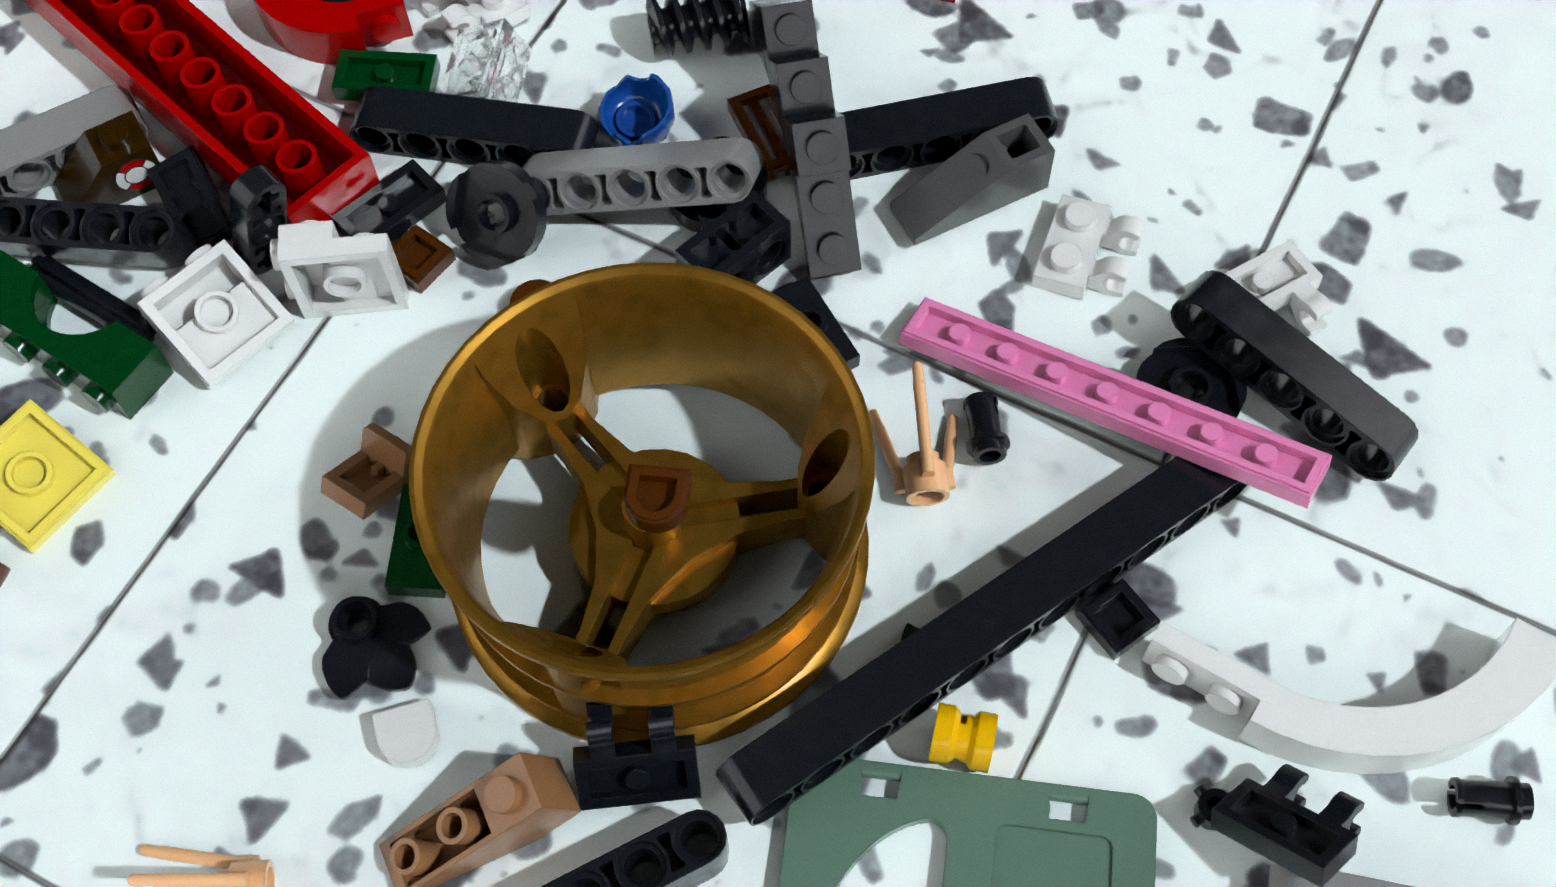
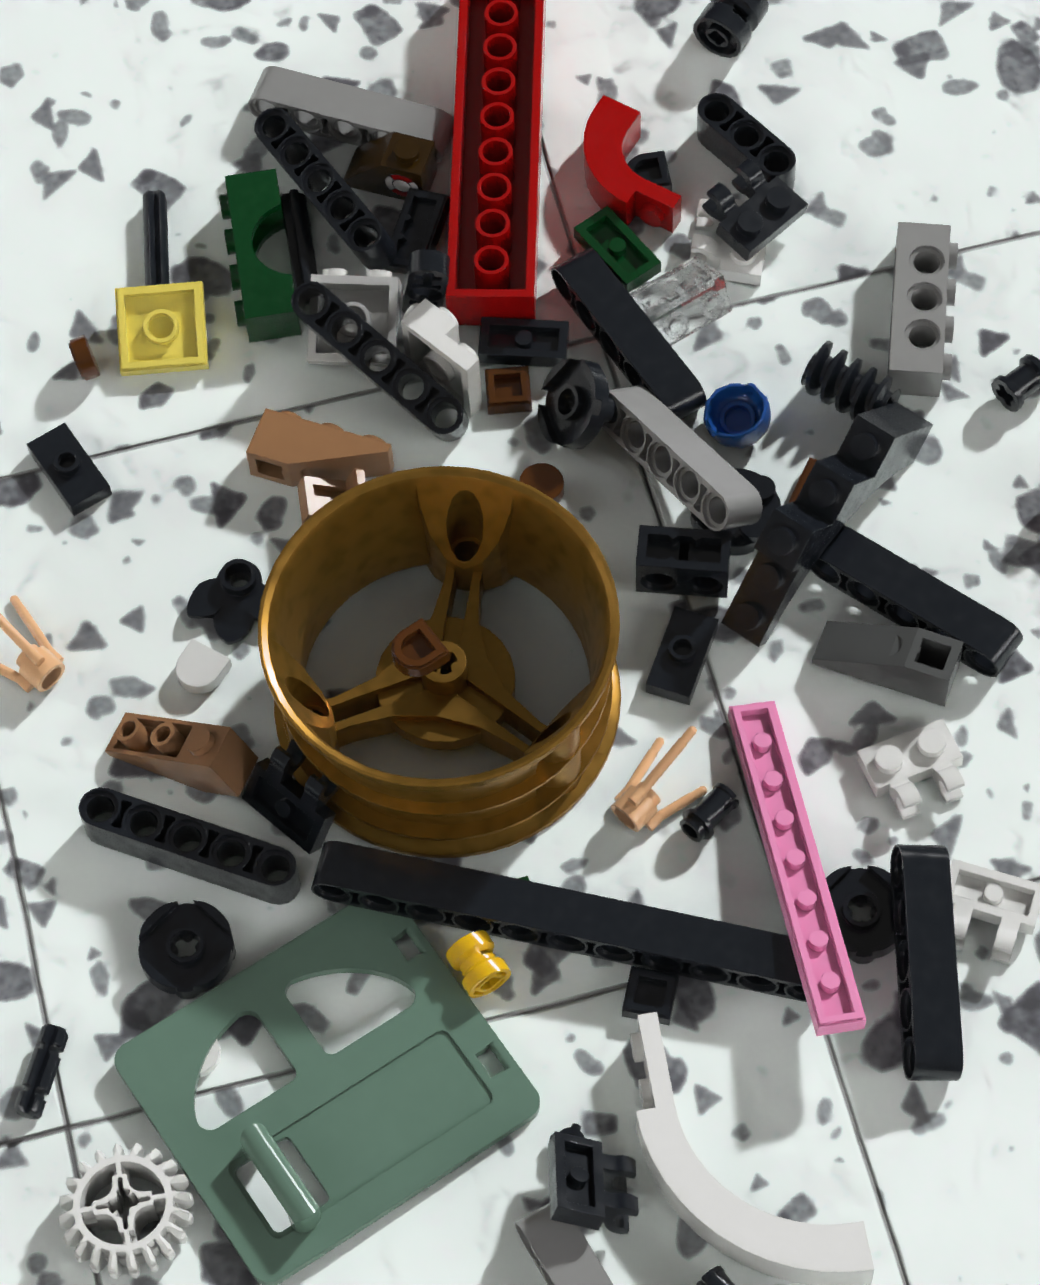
camera: 50 degrees right, 0 degrees up
(70, 679) = (69, 469): none -> black plate
(260, 308) = (367, 344): none -> black beam
(286, 462) = (293, 447): none -> medium nougat slope

